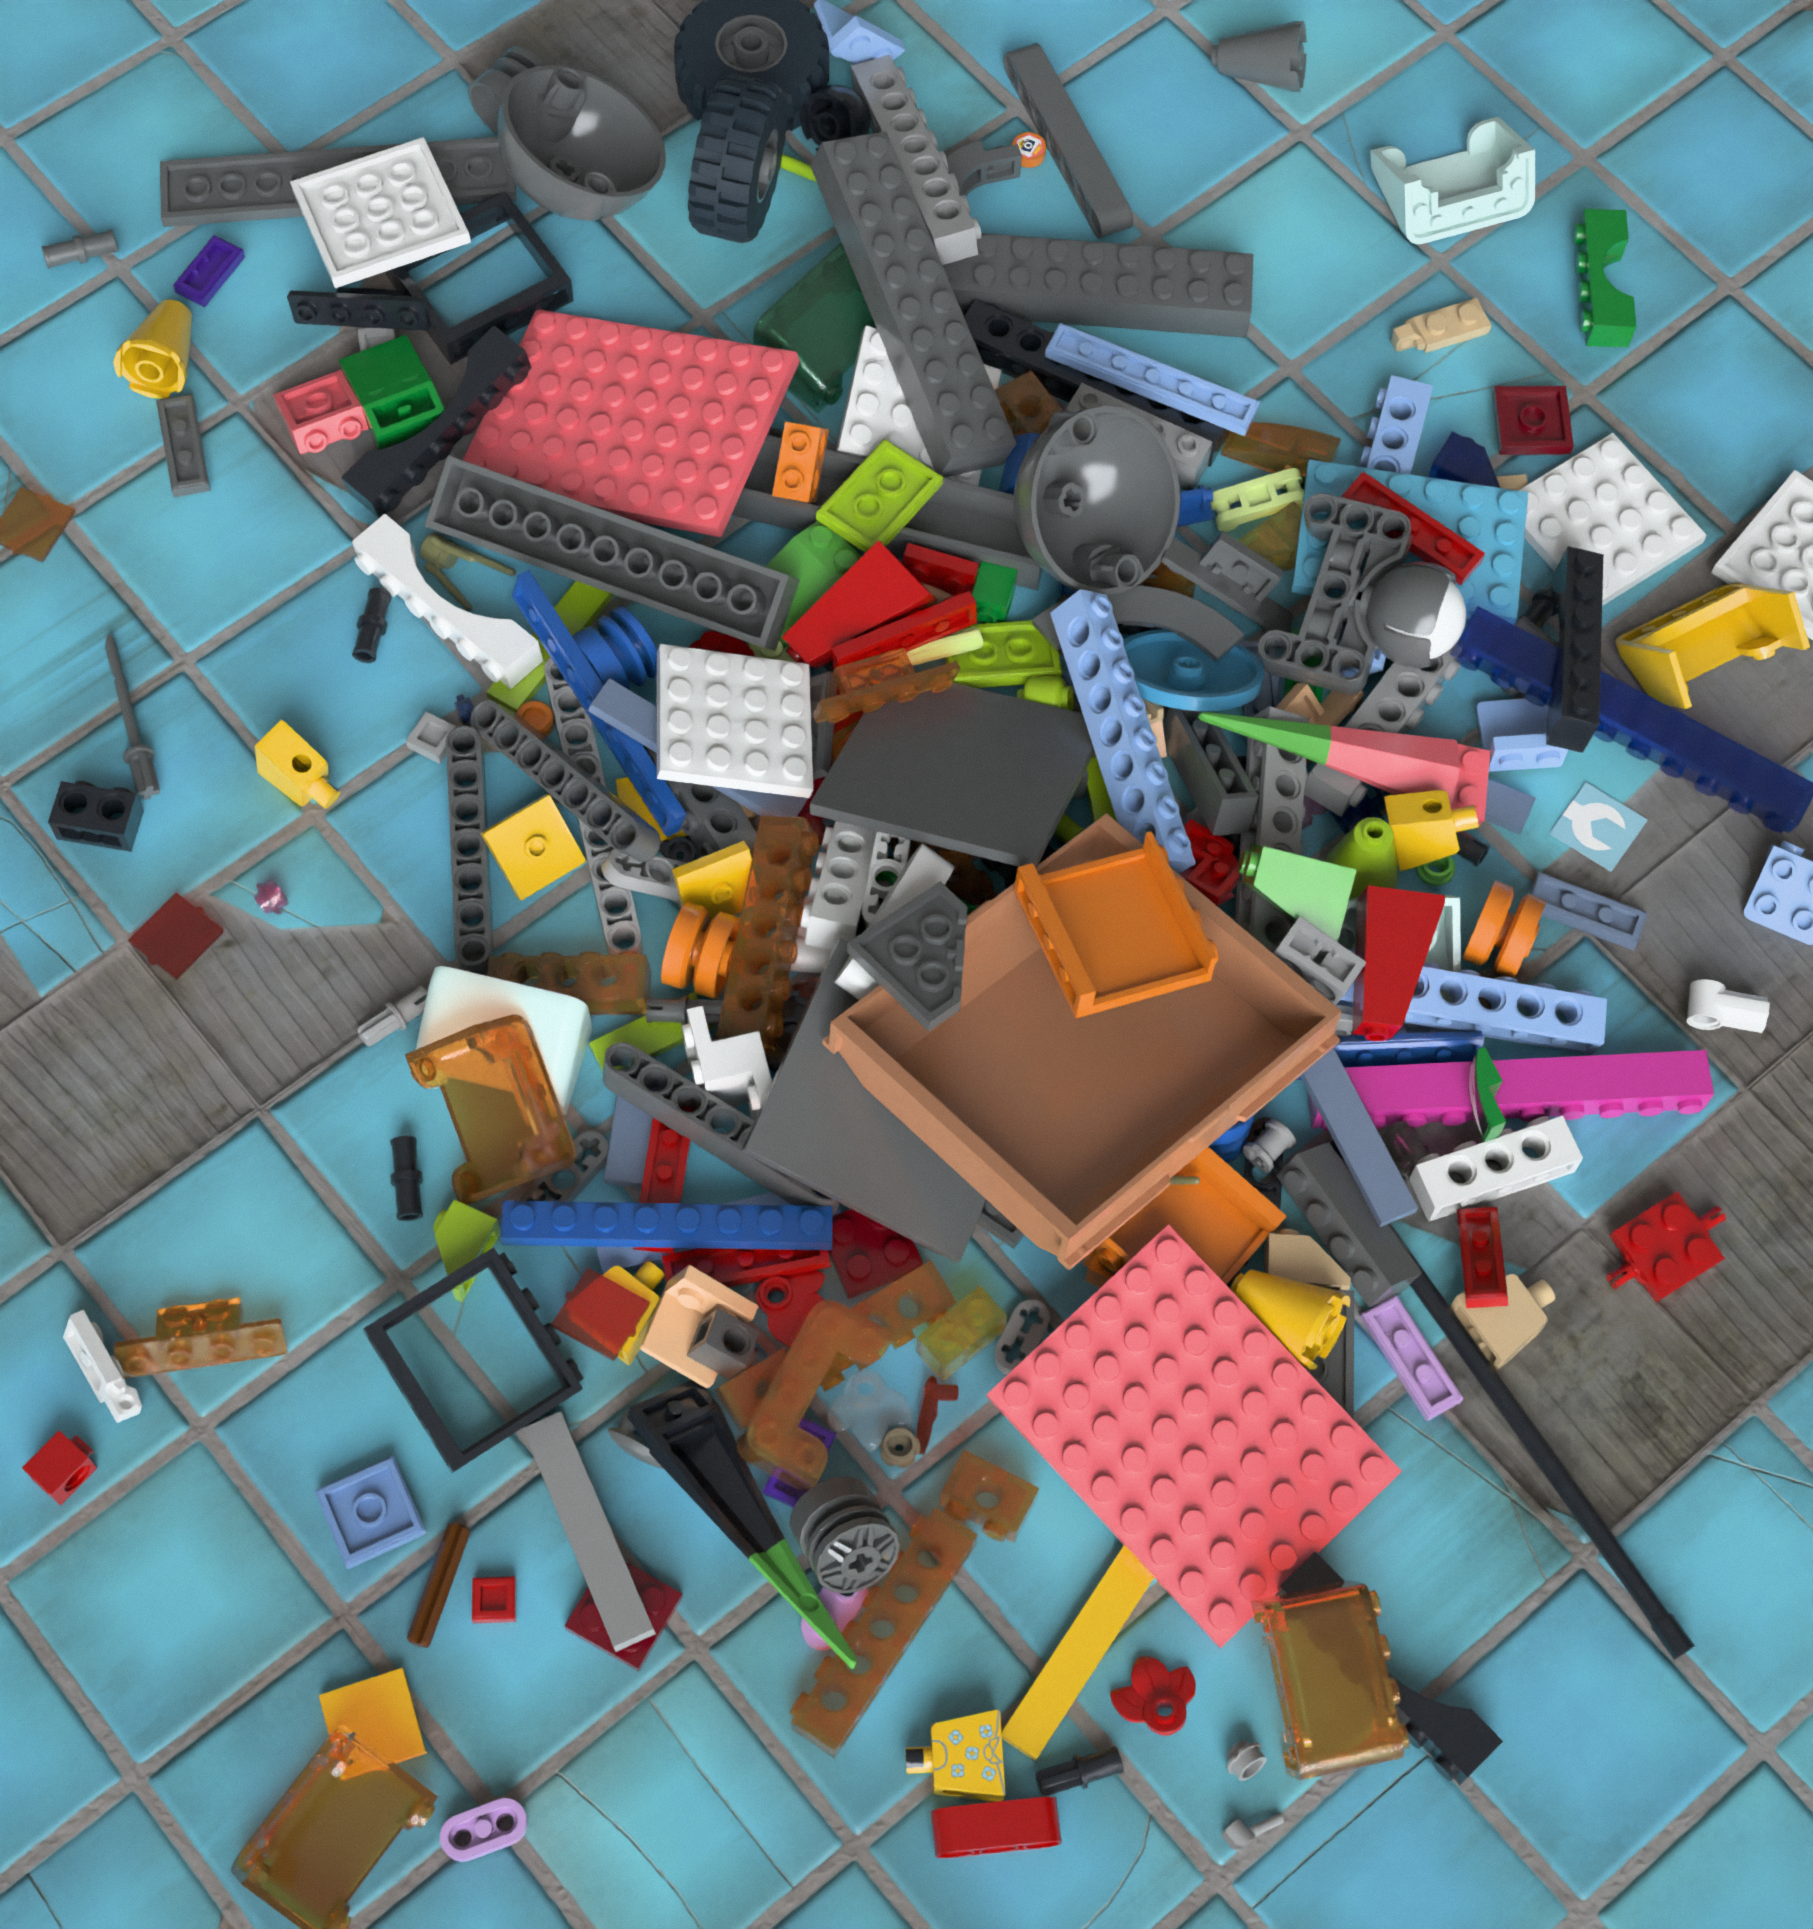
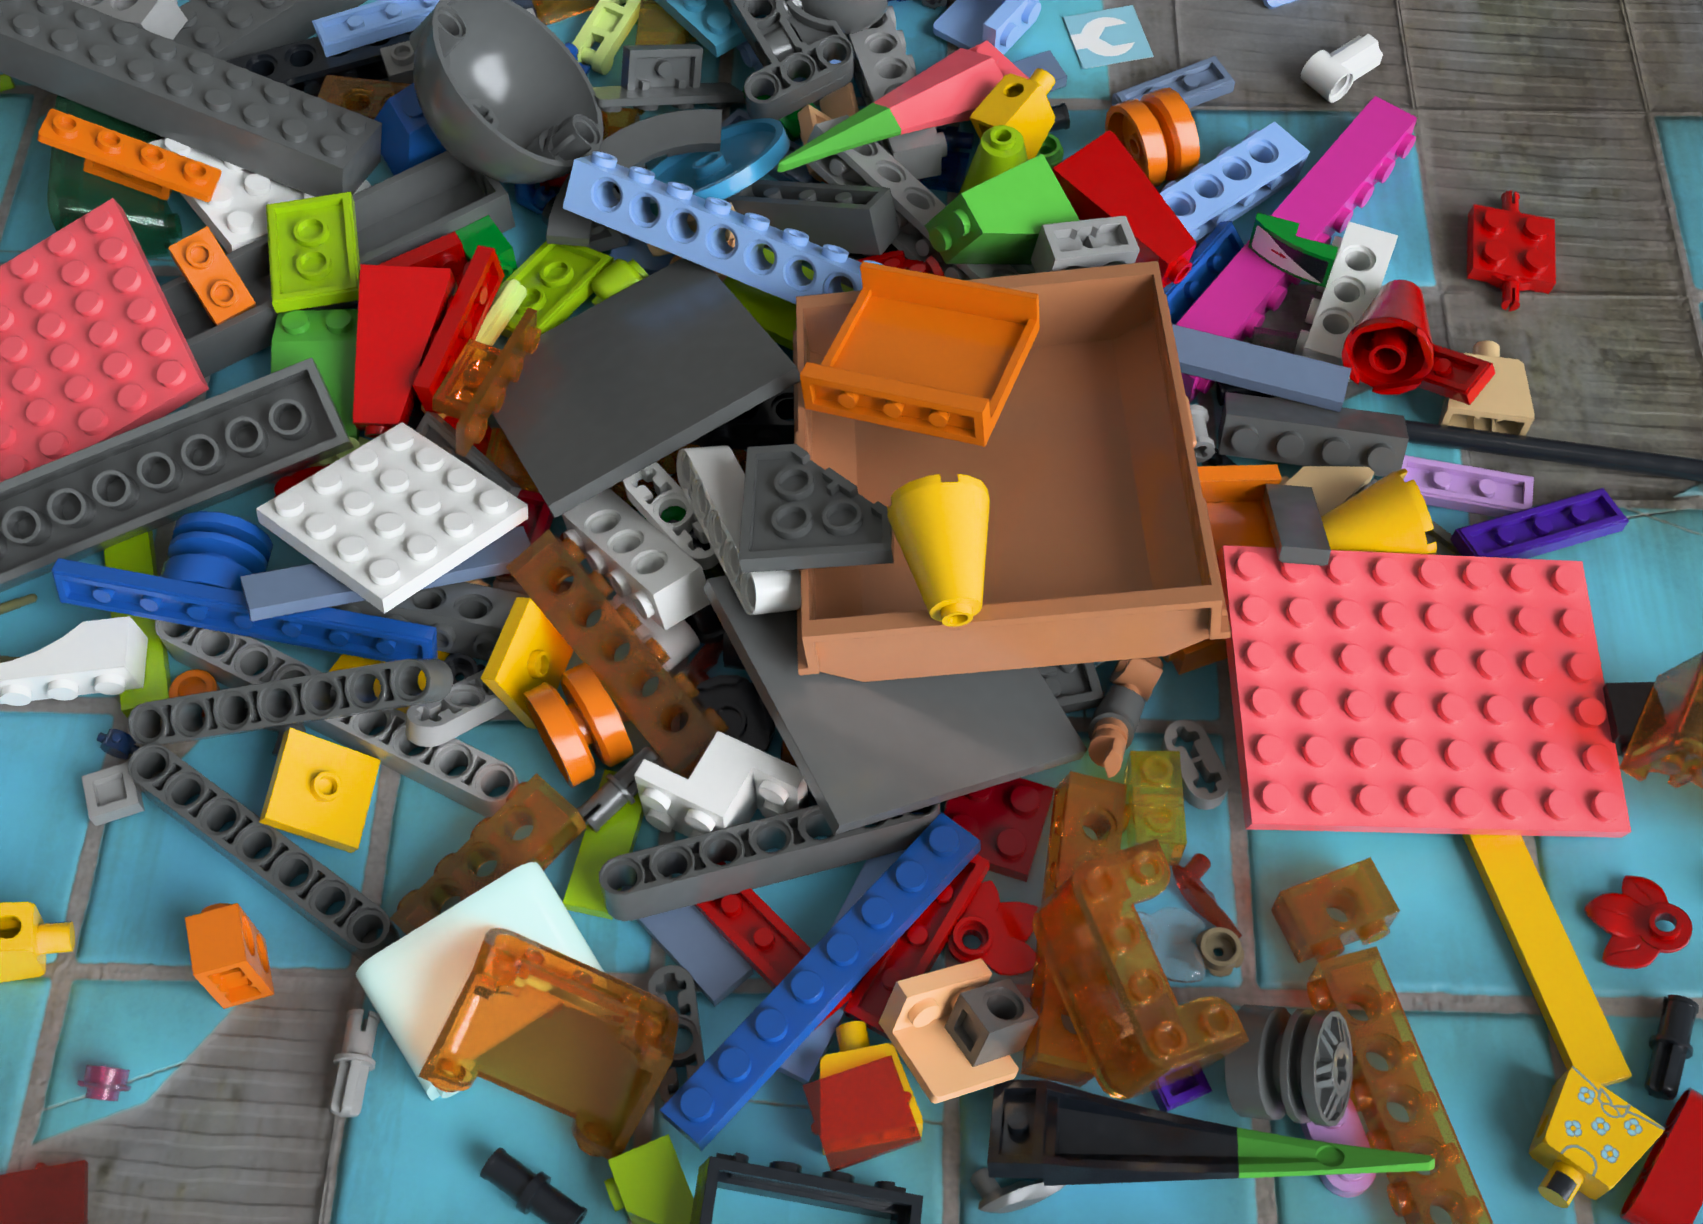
camera: 45 degrees left, 5 degrees down
(391, 892) = (229, 955): none -> orange brick
(833, 332) = (128, 159): none -> orange bracket
(955, 1050) = (944, 542): none -> yellow cone
(1003, 1265) = (1120, 711): none -> nougat piece
(1236, 1259) = (1296, 525): none -> dark grey tile
(1417, 1431) = (1542, 527): none -> dark purple tile
(1471, 1213) = (1391, 341): none -> red cone

